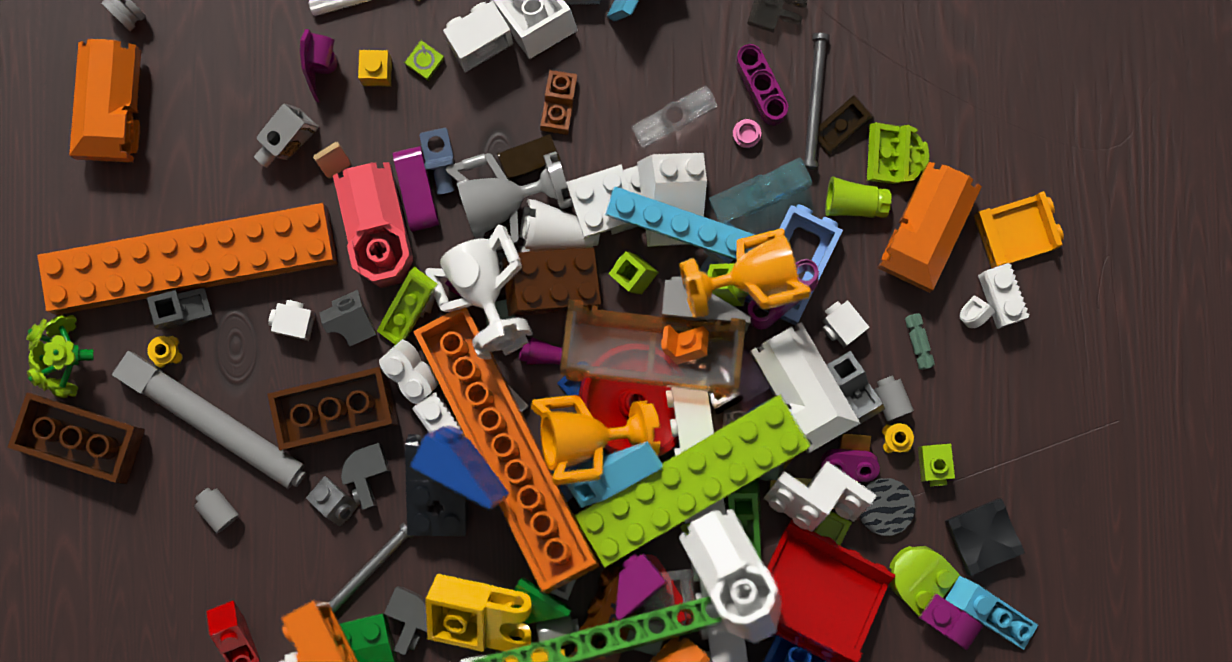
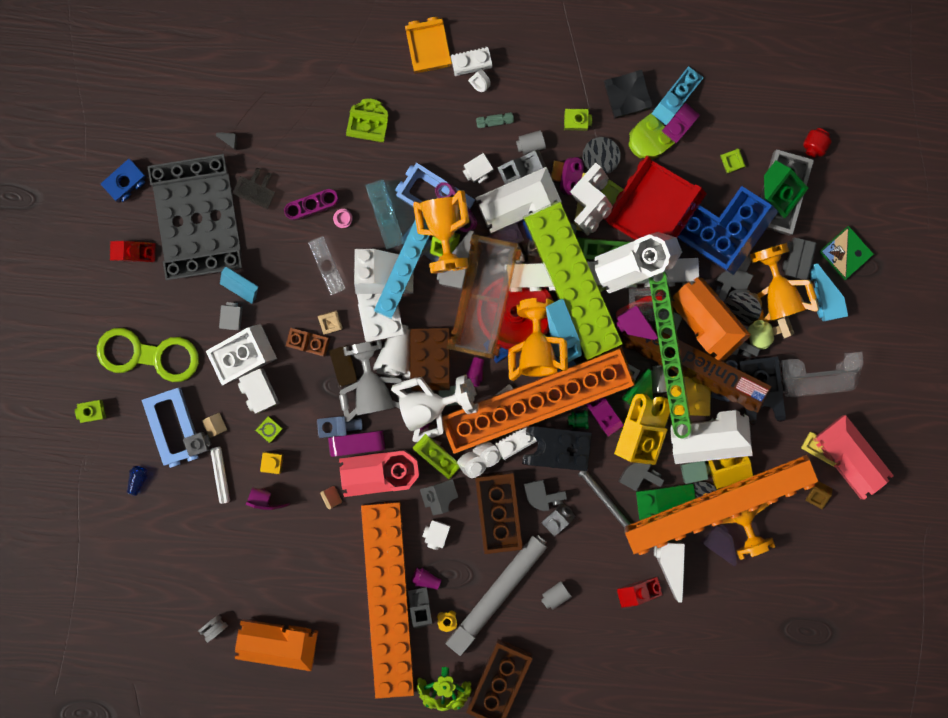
camera: 90 degrees left, 5 degrees up
(223, 312) = (425, 579): none -> magenta cone
(291, 128) = (305, 522): light grey torso -> none
(459, 465) = (548, 430): blue slope -> none
(483, 517) = (578, 420): none -> dark green brick
(493, 555) = (605, 416): none -> magenta brick
(591, 131) = (330, 322): none -> tan tile
(633, 272) = (429, 304): lime brick -> none
(685, 345) = (483, 275): orange bracket -> none
(815, 100) = (325, 170): flat silver bar -> none
(843, 124) = (343, 154): dark brown slope -> none
(856, 199) = (396, 150): lime plant -> none
(890, 443) = (553, 147): yellow brick -> none
(930, 226) = (420, 104): orange brick -> none

